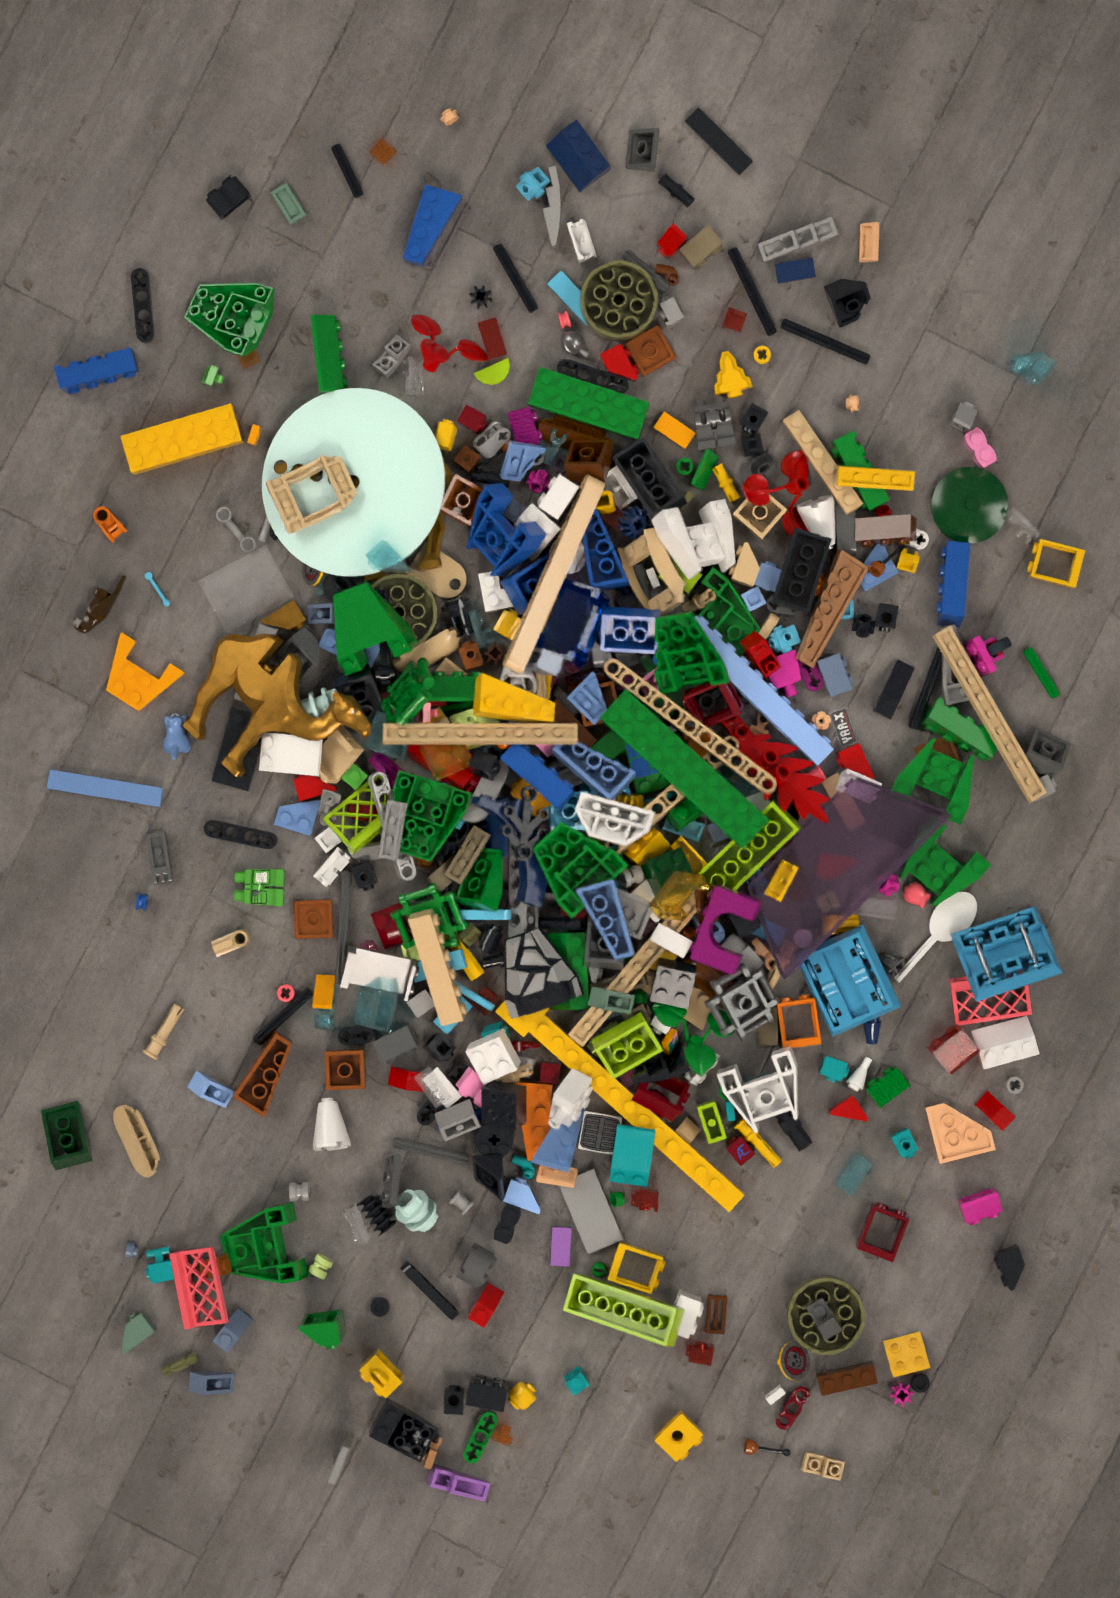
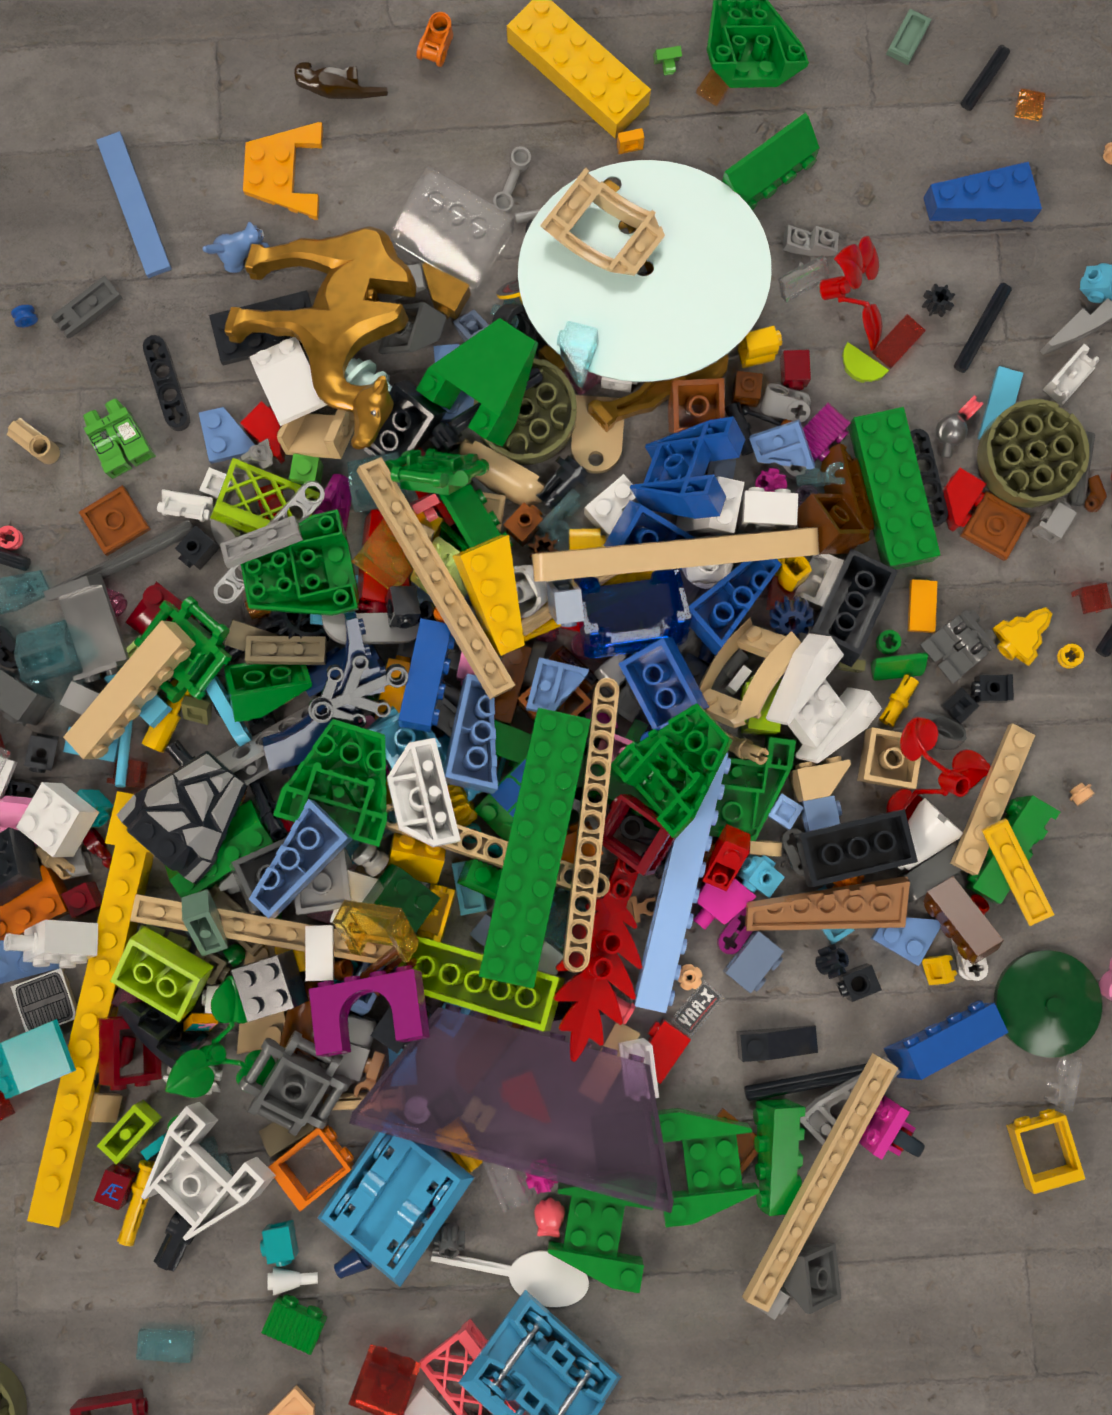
camera: 60 degrees right, 5 degrees down
(149, 576) = (403, 120): medium azure hinge -> none
(324, 991) = (31, 578): light orange tile -> none
(490, 938) = (205, 737): black brick -> none
(781, 880) = (469, 1044): yellow hinge -> none
(848, 1109) = (239, 1291): red slope -> none
(877, 567) = (911, 938): dark orange hinge -> none
(904, 1143) = (236, 1387): teal brick -> none
(1041, 672) = (904, 1211): green axle -> none

